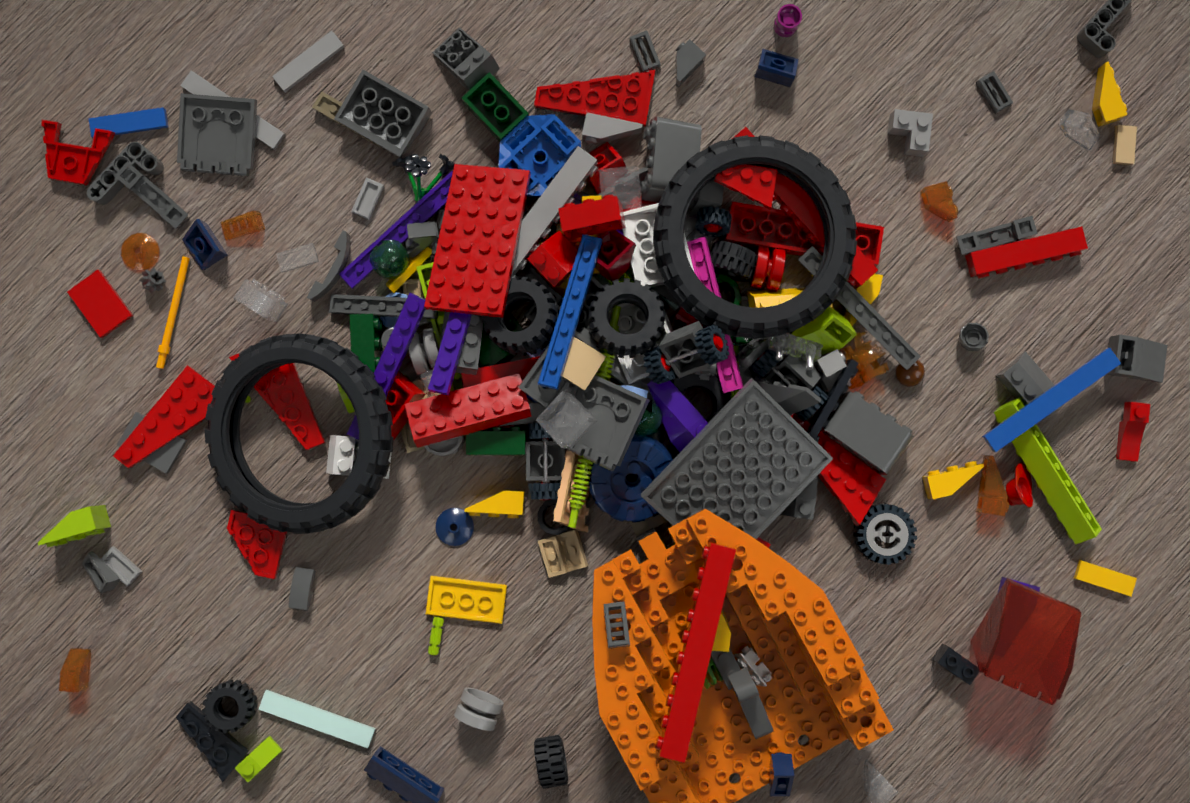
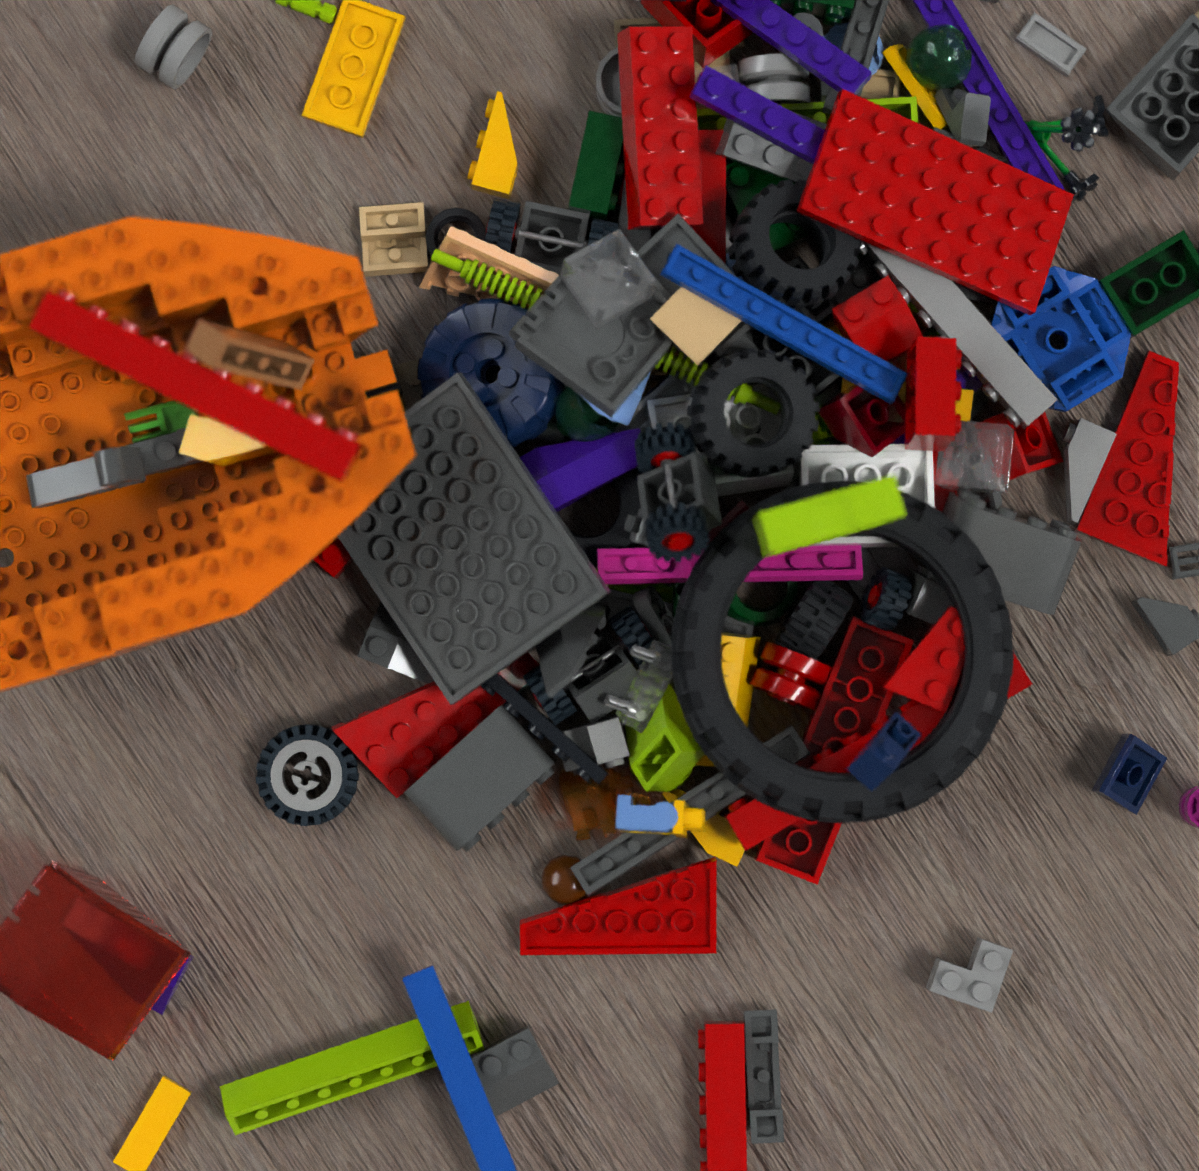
camera: 100 degrees right, 0 degrees up
(464, 524) = (480, 88): dark blue dish -> none
(551, 761) = (63, 144): black tyre -> none
(620, 643) = (263, 284): dark grey slope -> none
(667, 623) = (249, 354): none -> medium nougat brick
(688, 254) = (828, 516): none -> lime tile
(758, 673) = (130, 502): white hinge -> none
(812, 196) = (884, 752): none -> dark blue slope
(872, 323) = (658, 819): none -> medium blue hips
(921, 319) = (646, 917): none -> red wing
(939, 201) = (843, 993): clear orange slope -> none
(946, 483) = (369, 894): yellow slope -> none
(956, 664) = (70, 839): black brick -> none
(973, 336) = (602, 997): dark grey hair -> none
(989, 97) = (983, 1143): dark grey tile -> none
(992, 494) = (333, 968): clear orange slope -> none
(1020, 488) = (332, 1018): red piece -> none

